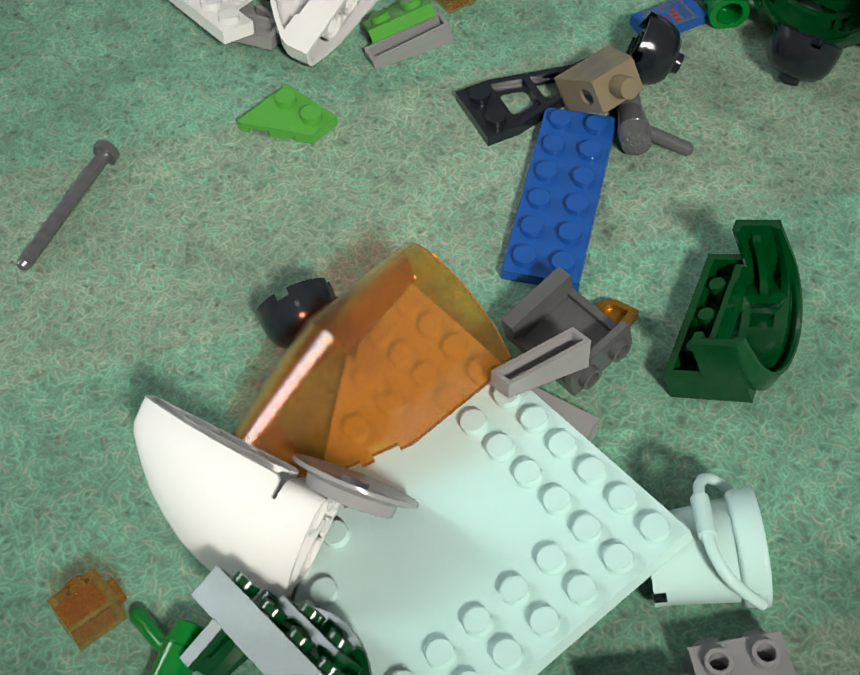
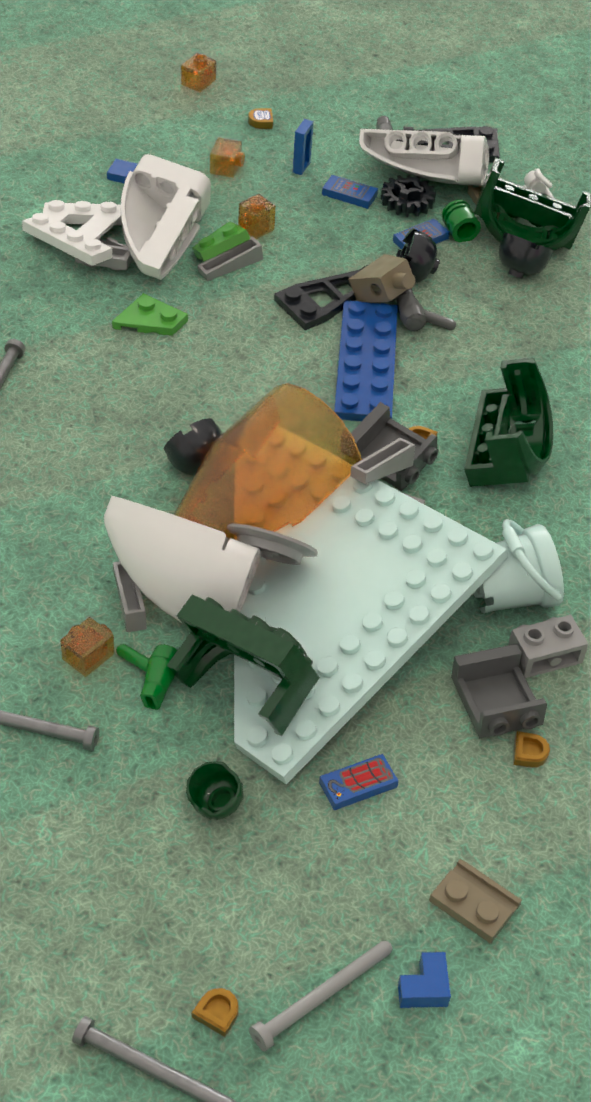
camera: 15 degrees left, 5 degrees down
(163, 550) = (130, 600): none -> light grey piece

